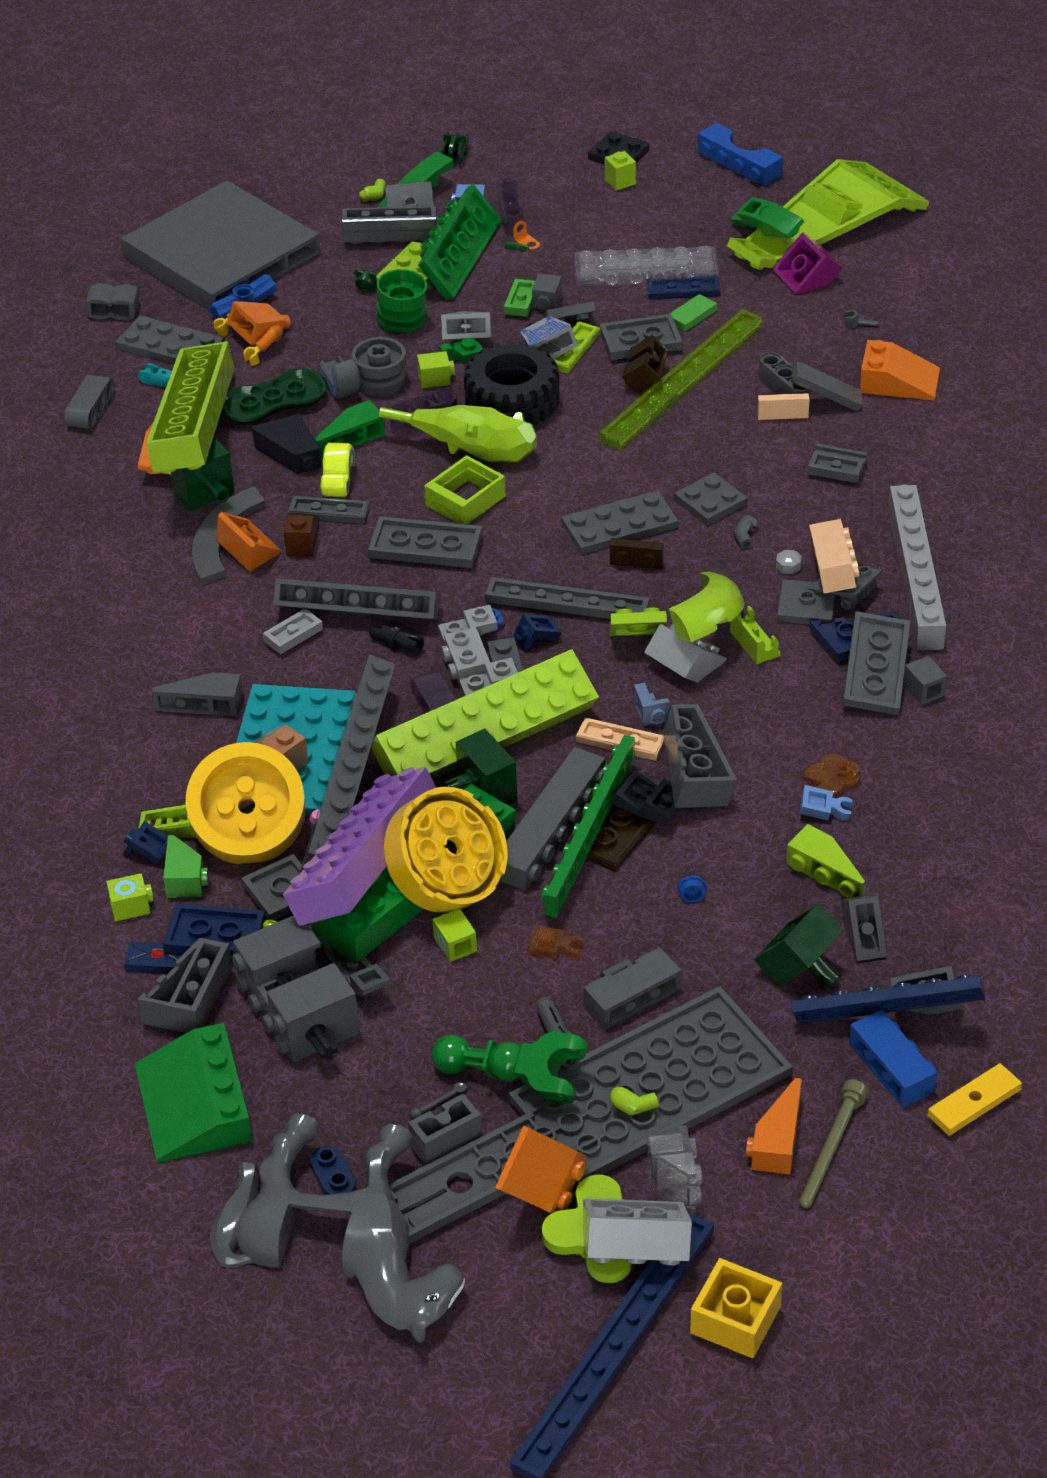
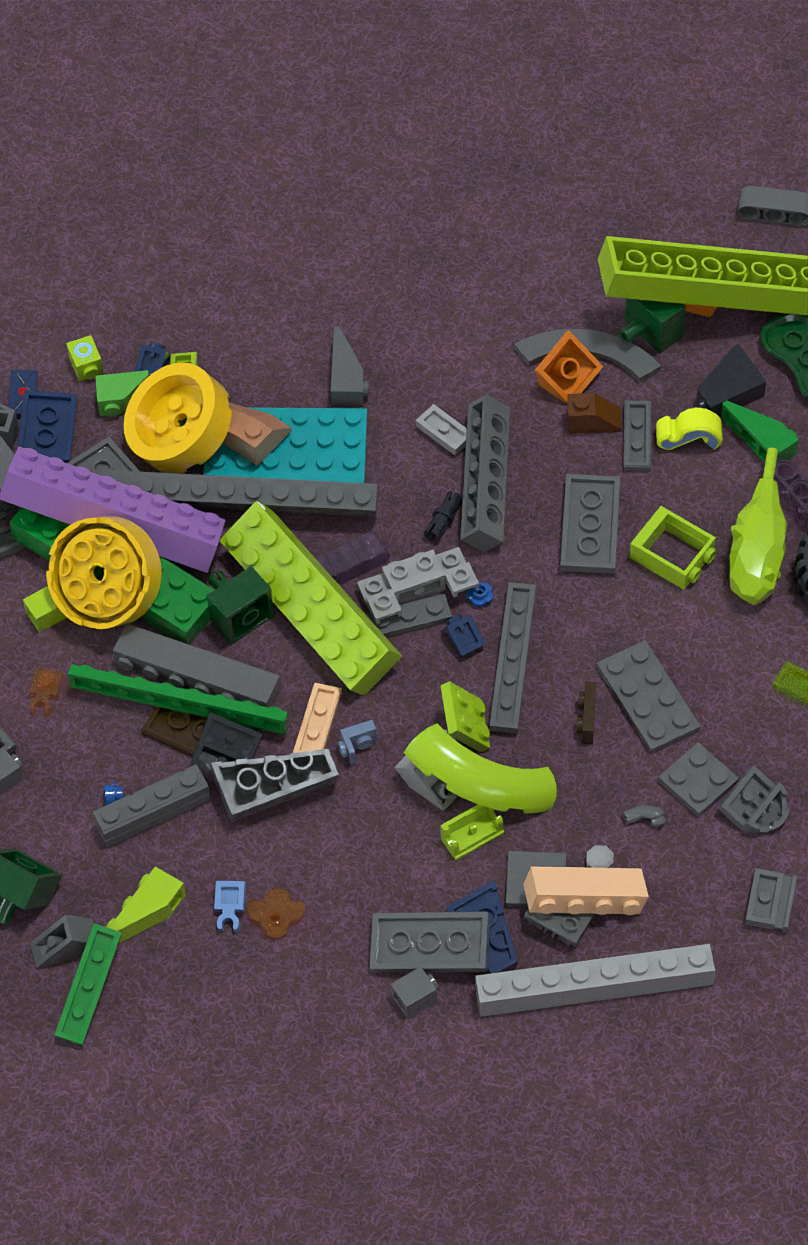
camera: 85 degrees right, 15 degrees up
(711, 854) = (151, 806): none -> dark grey brick
(742, 465) = (756, 803): none -> dark grey slope
(917, 901) = (88, 984): none -> green plate

